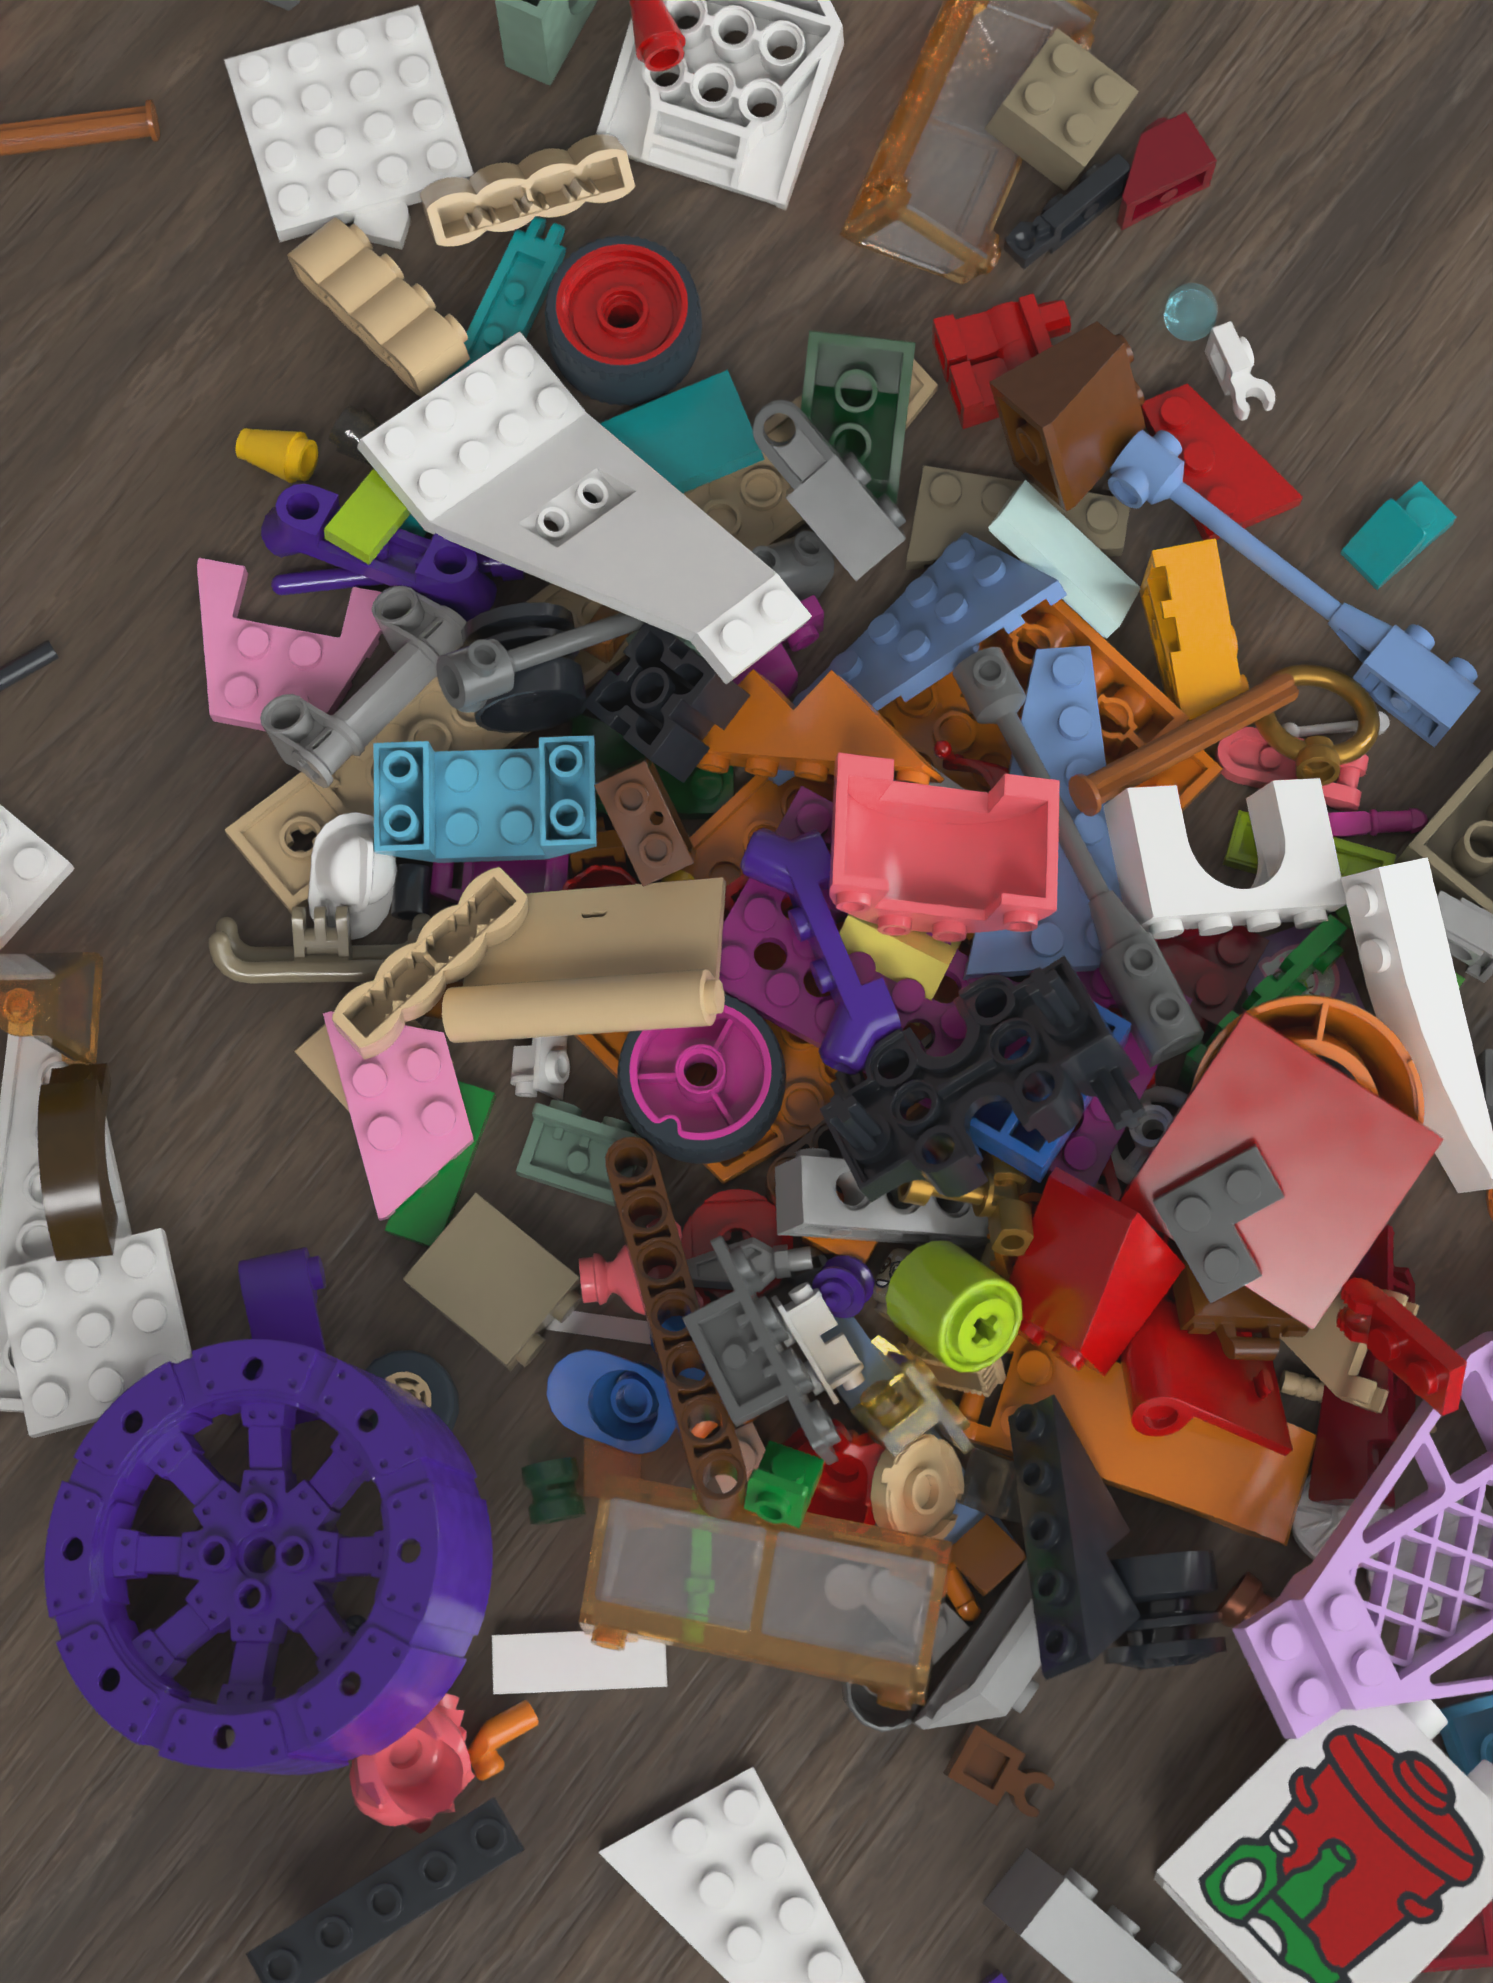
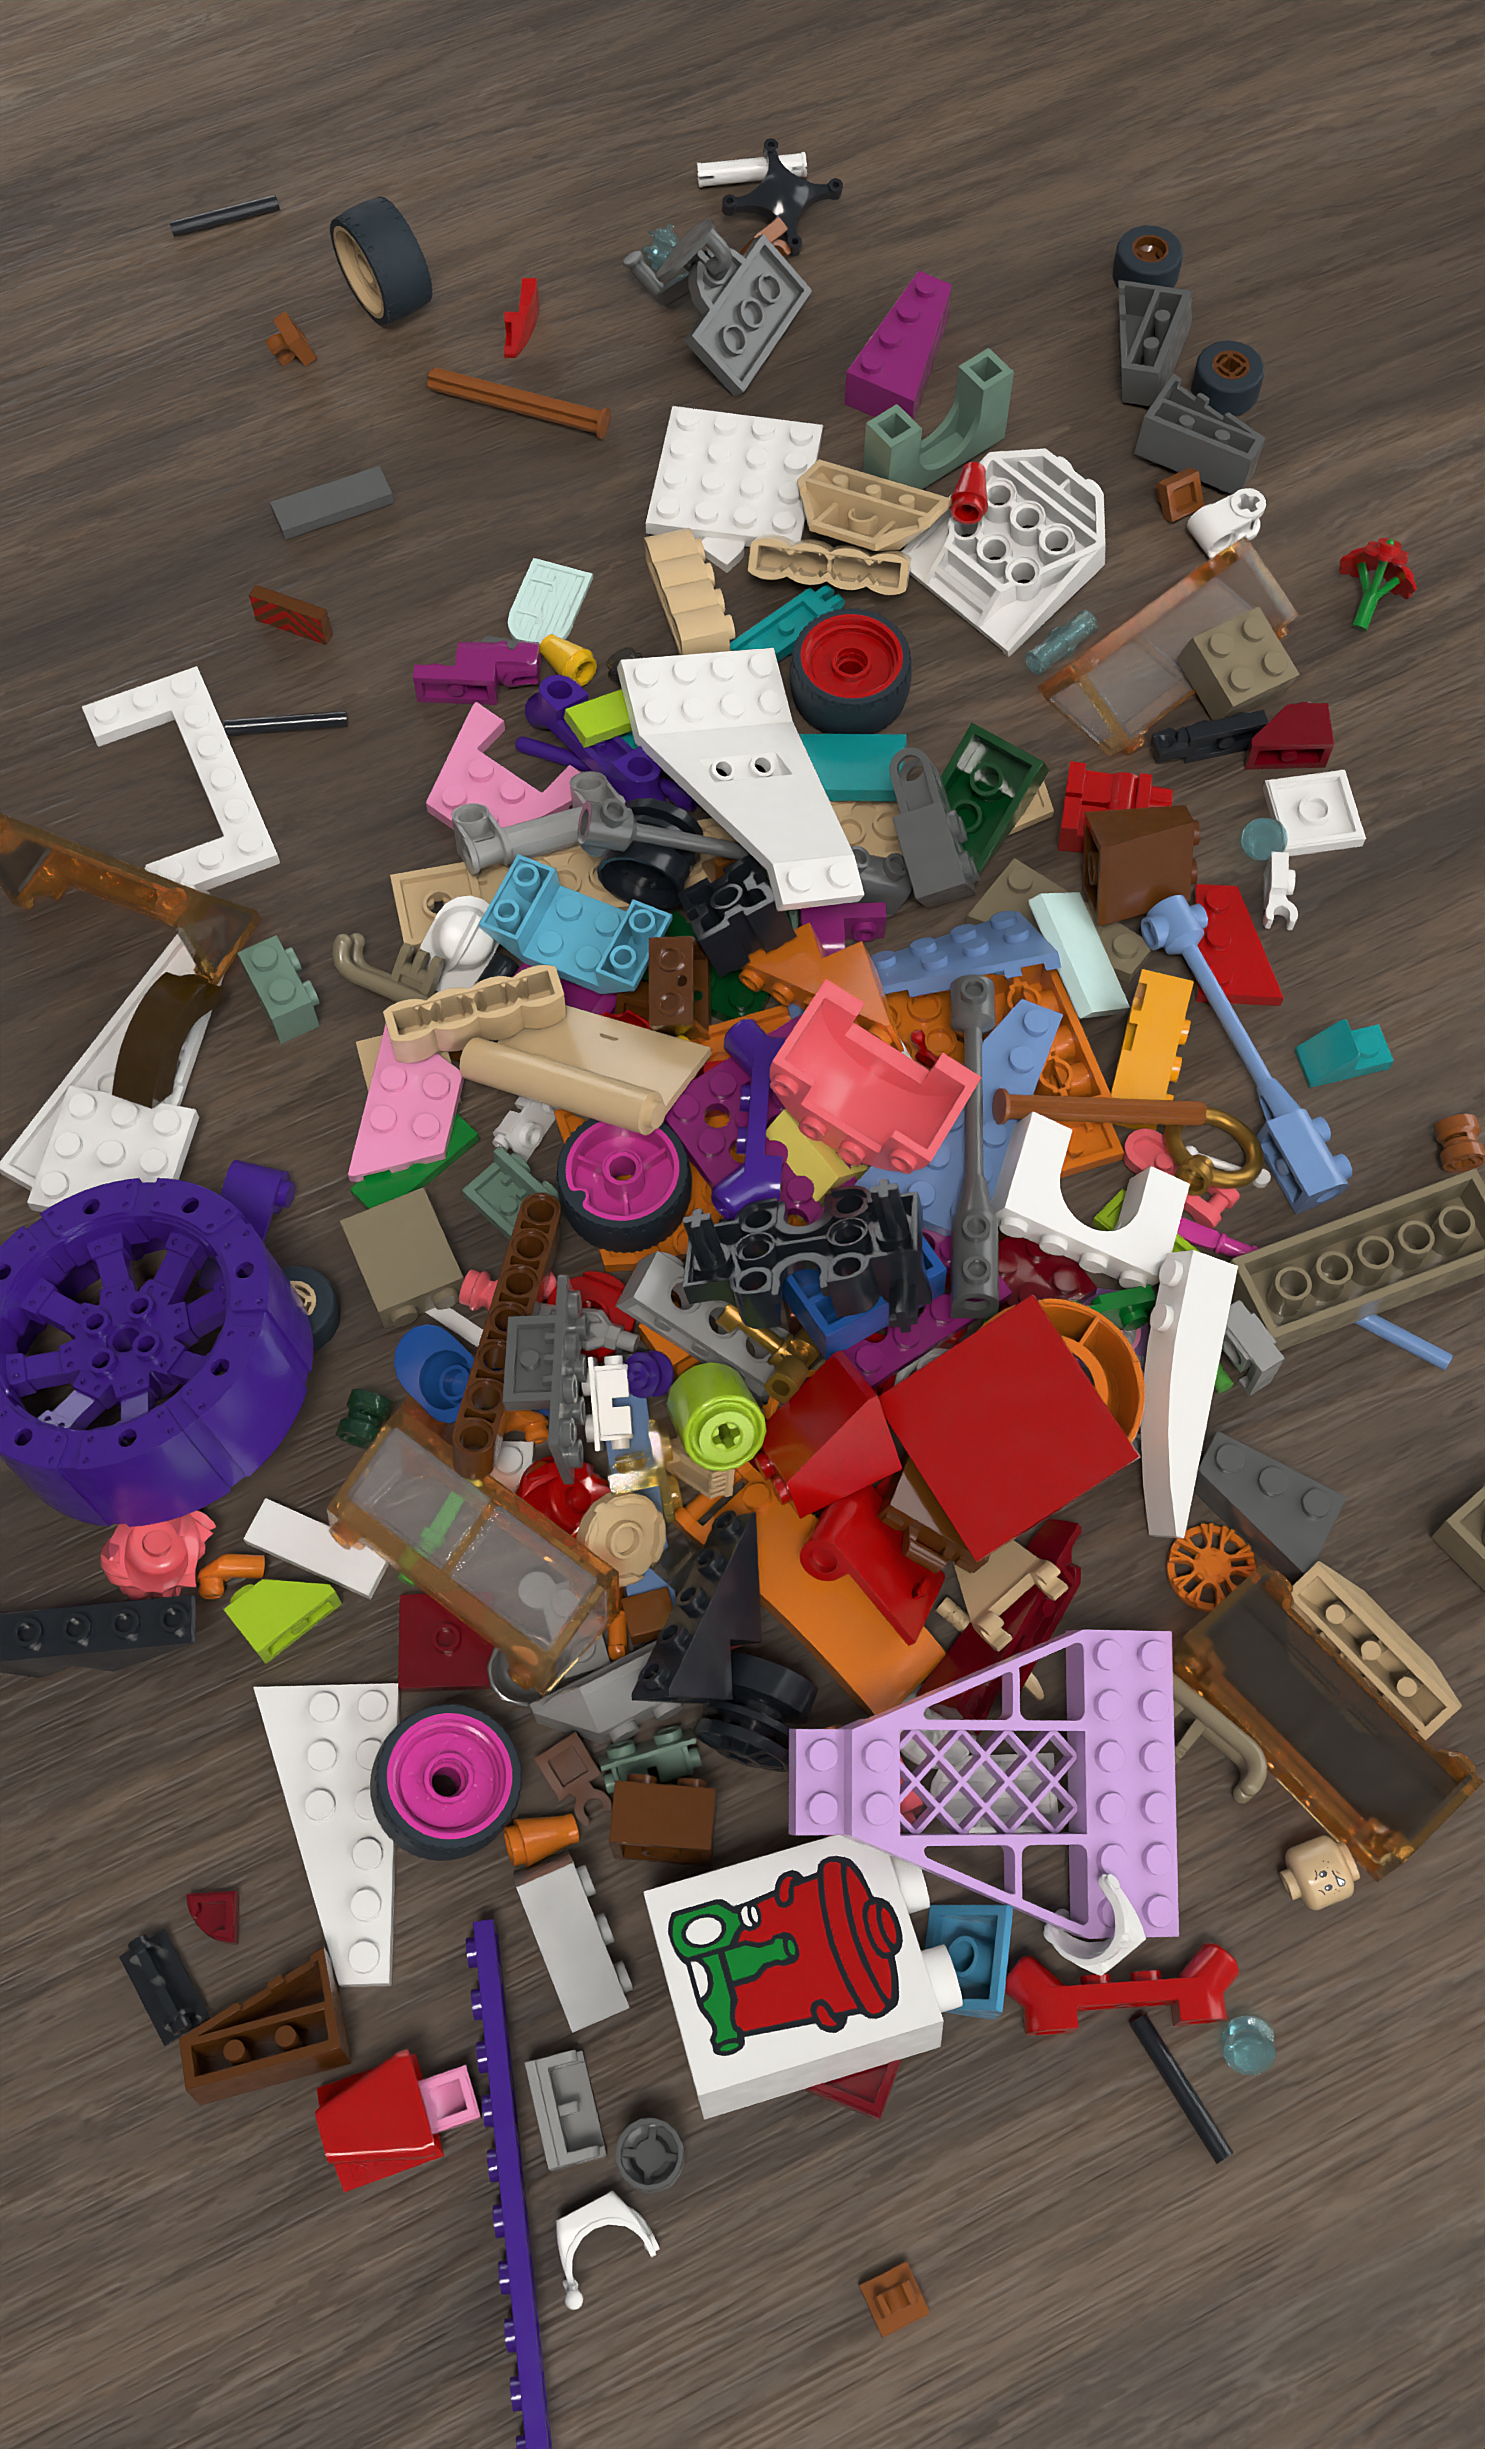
camera: 25 degrees right, 10 degrees down
(169, 1030) = (279, 989): none -> sand green brick
(183, 514) = (479, 672): none -> magenta plate
(210, 389) = (547, 601): none -> light aqua window
(535, 100) = (866, 507): none -> tan wedge
(579, 1759) = (279, 1612): none -> lime slope
(775, 1707) = (438, 1649): none -> dark red plate
(783, 1484) = (519, 1473): green bracket -> none
(840, 165) = (1061, 642): none -> clear light blue pin
(916, 1846) = (453, 1744): none -> dark pink wheel
(994, 1857) = (537, 1838): none -> orange cone
(1044, 1723) = (666, 1752): none -> sand green hinge
(1126, 1776) = (663, 1821): none -> reddish brown brick
(1204, 1218) = (931, 1434): dark grey plate -> none
(1226, 248) = (1315, 812): none -> white tile
(1402, 1344) = (1034, 1596): red hinge -> none

